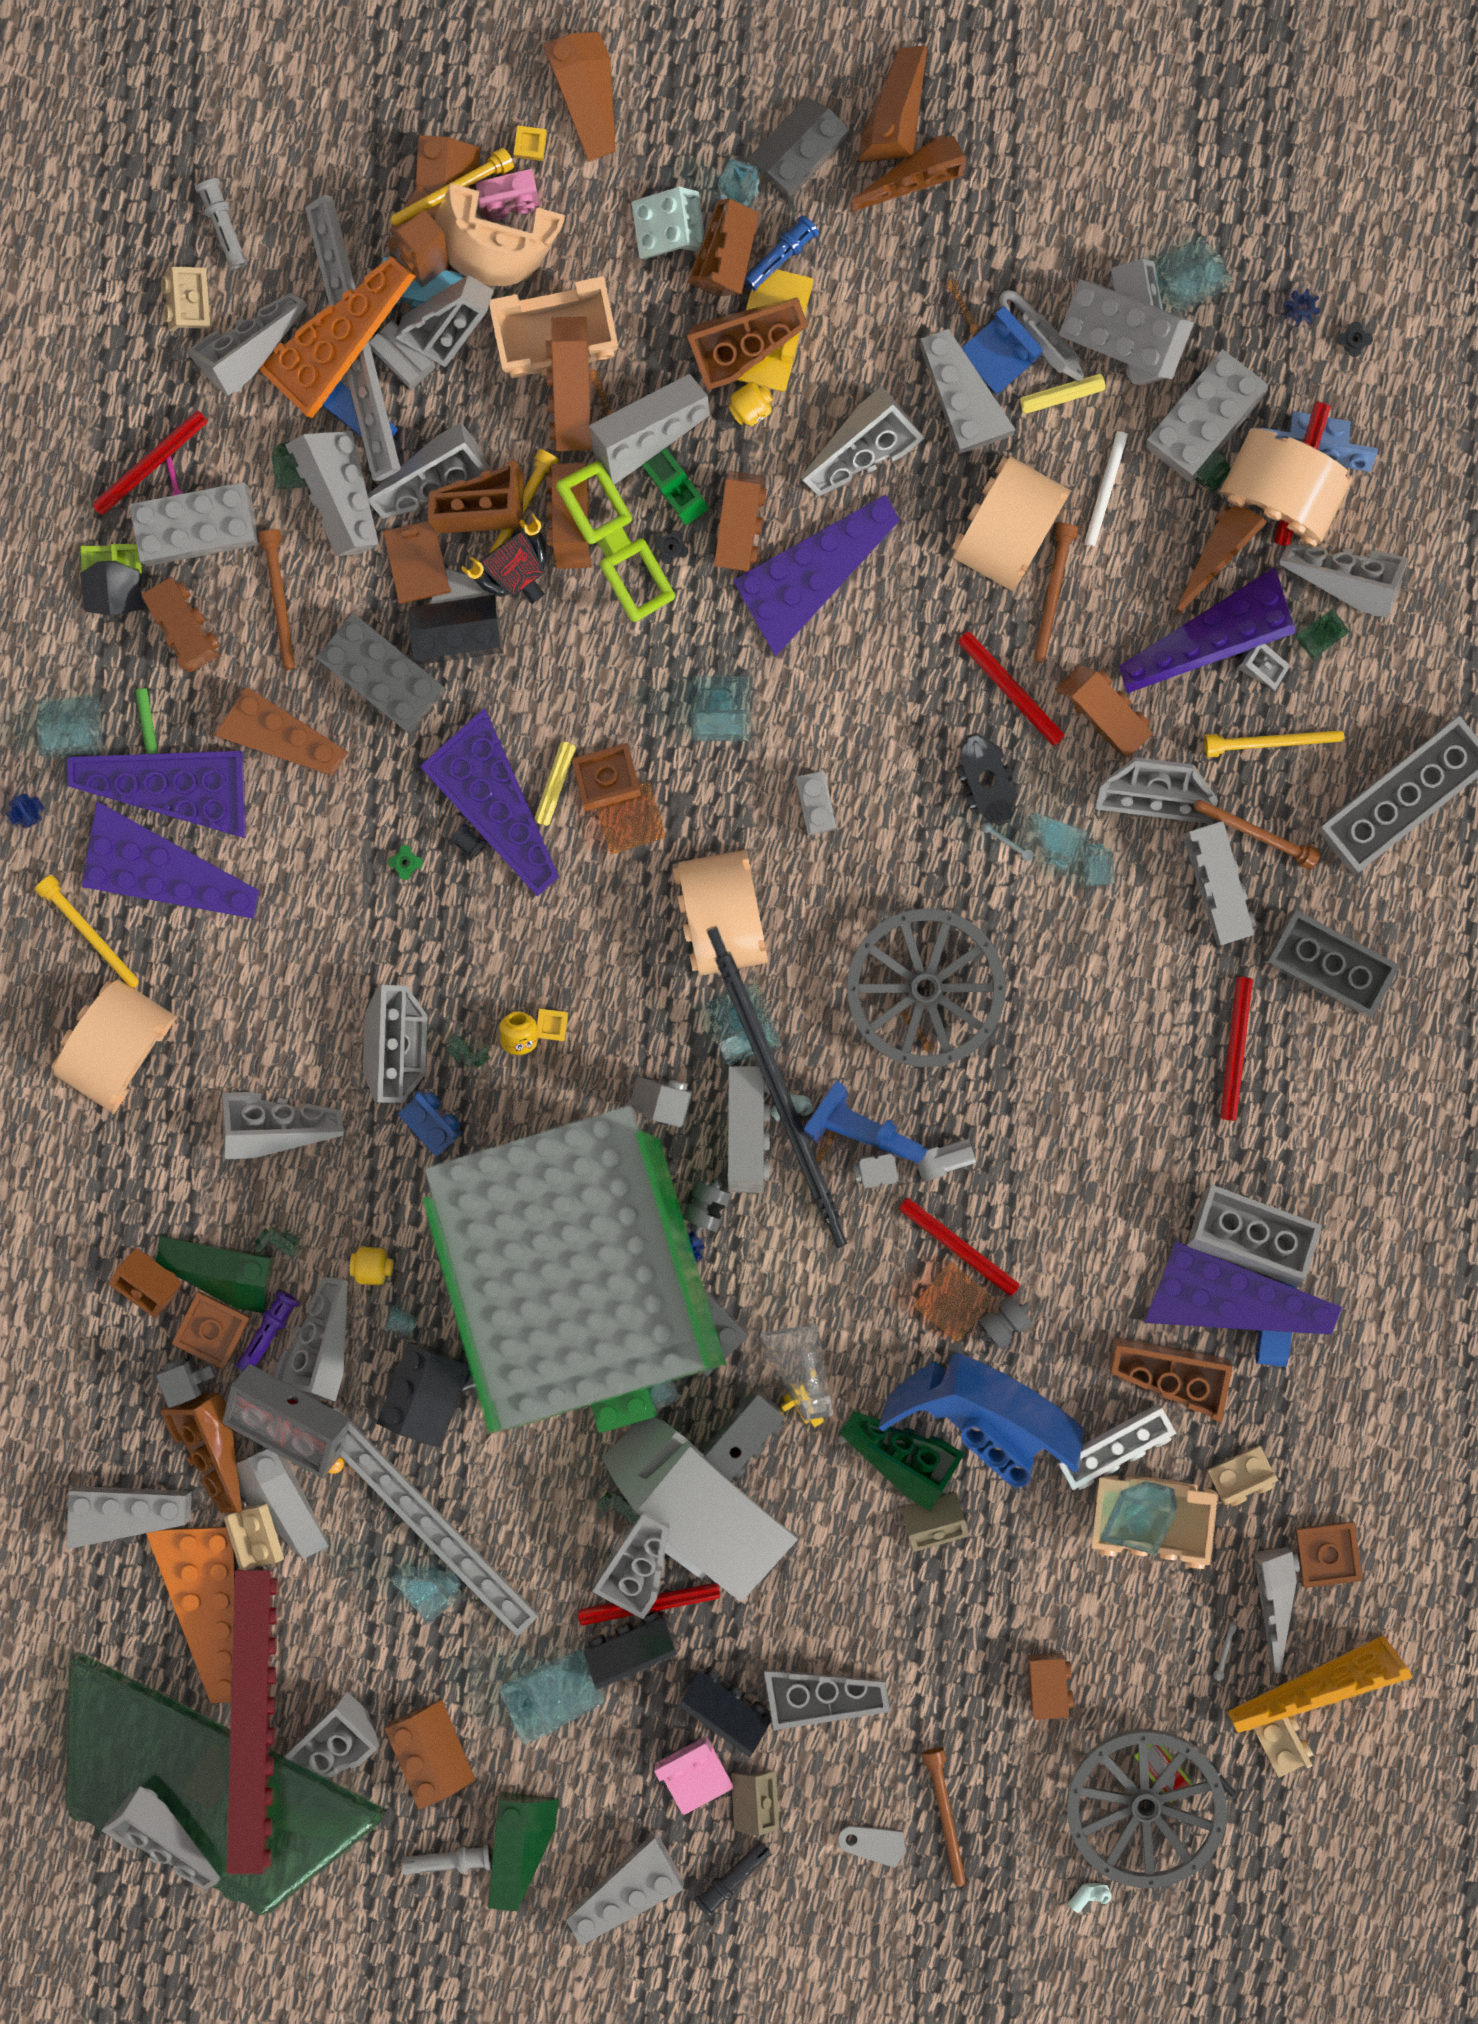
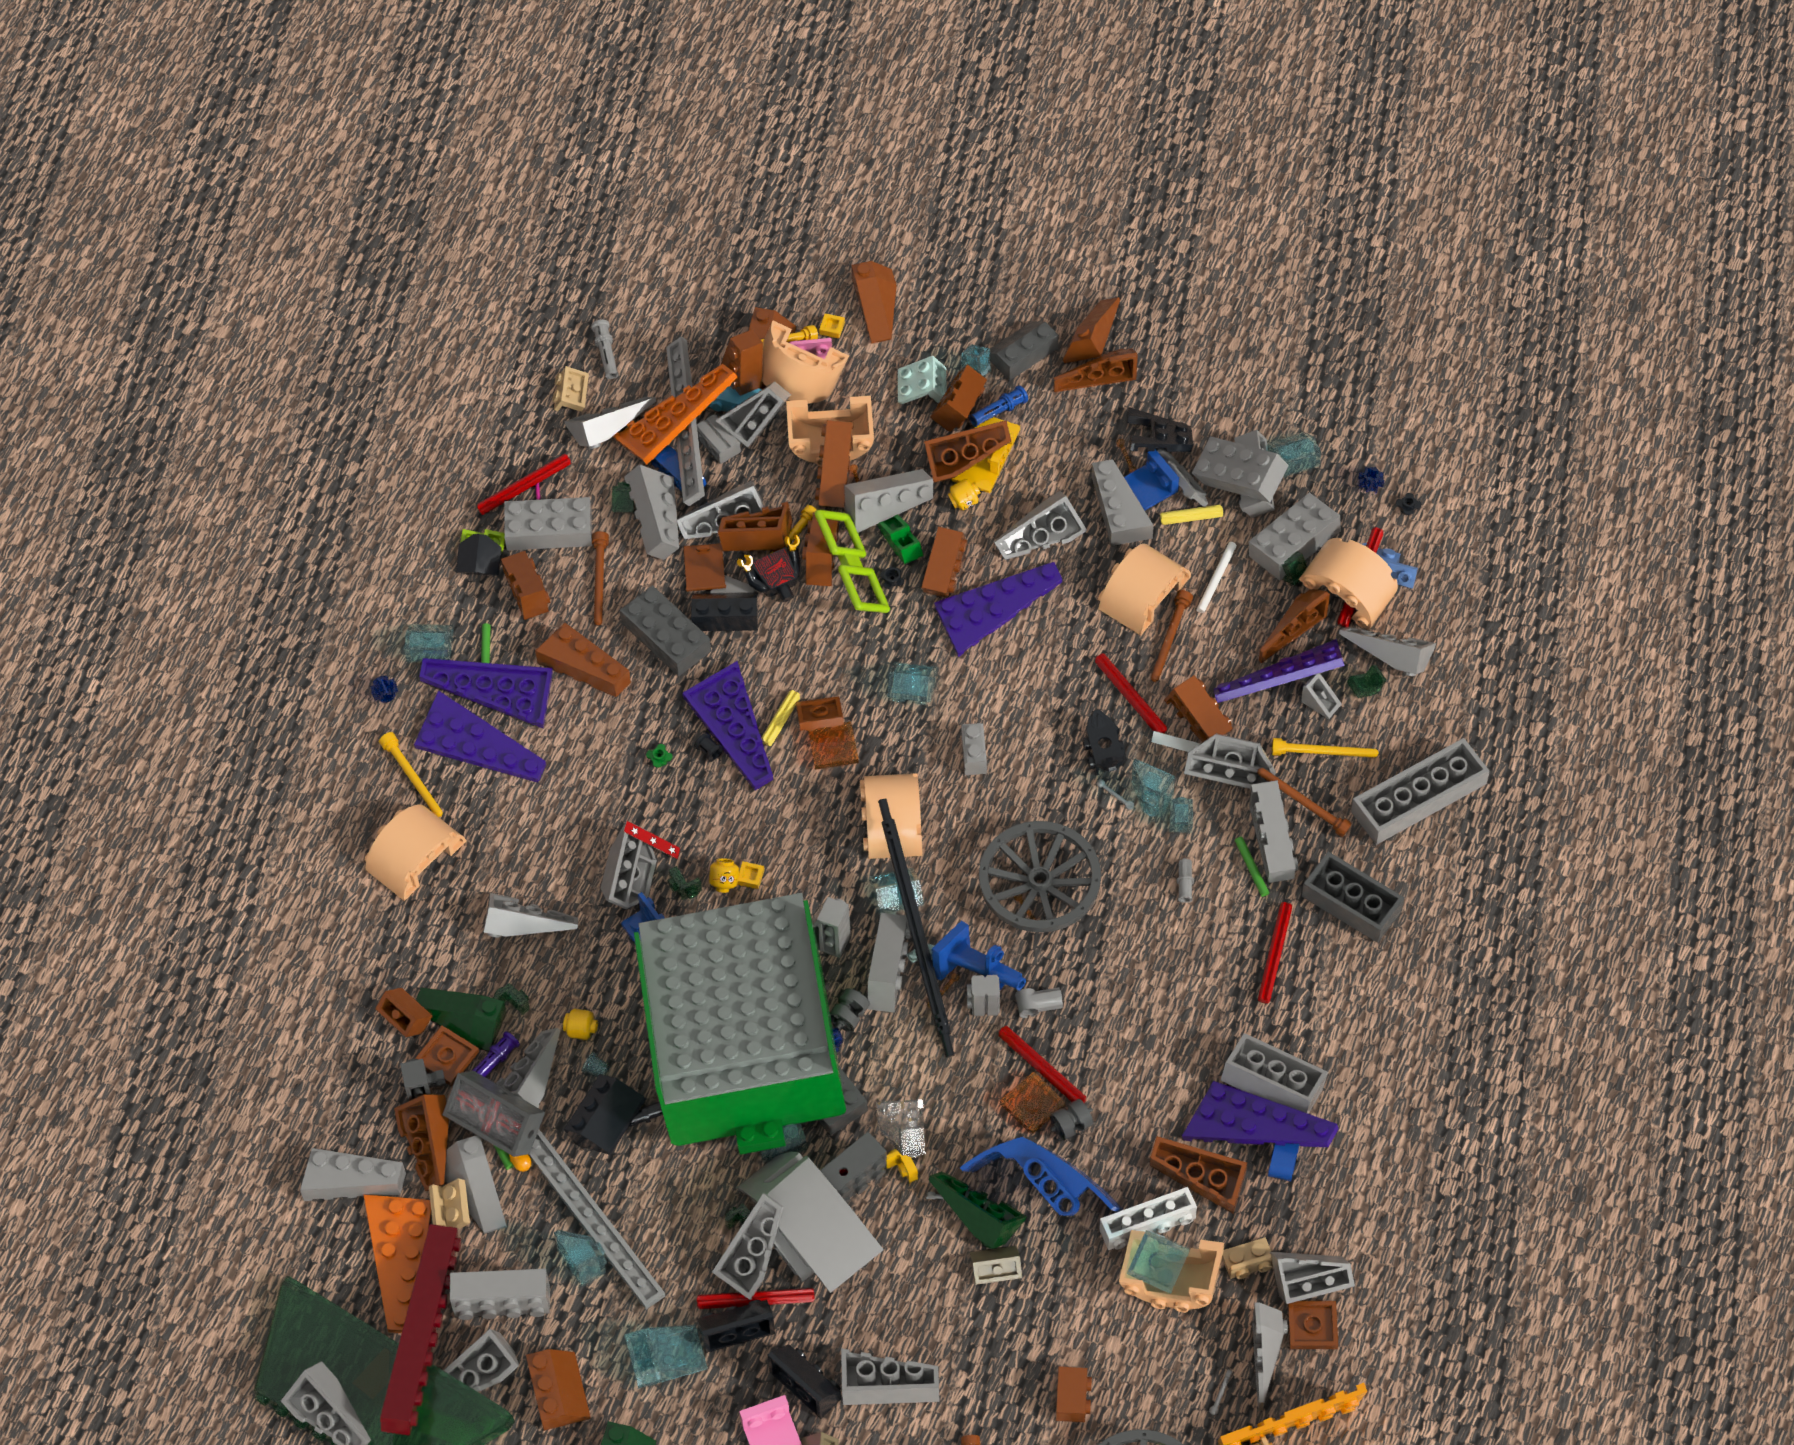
camera: 10 degrees right, 30 degrees down
(338, 1651) = (500, 1293): none -> light grey brick
(417, 996) = (652, 840): none -> red sticker
(1019, 270) = (1163, 433): none -> black wing
(1086, 756) = (1174, 742): none -> white sticker
(1111, 959) = (1185, 880): none -> light grey axle
(1194, 926) = (1249, 861): none -> bright green bar
(1323, 1498) = (1310, 1275): none -> light grey wedge

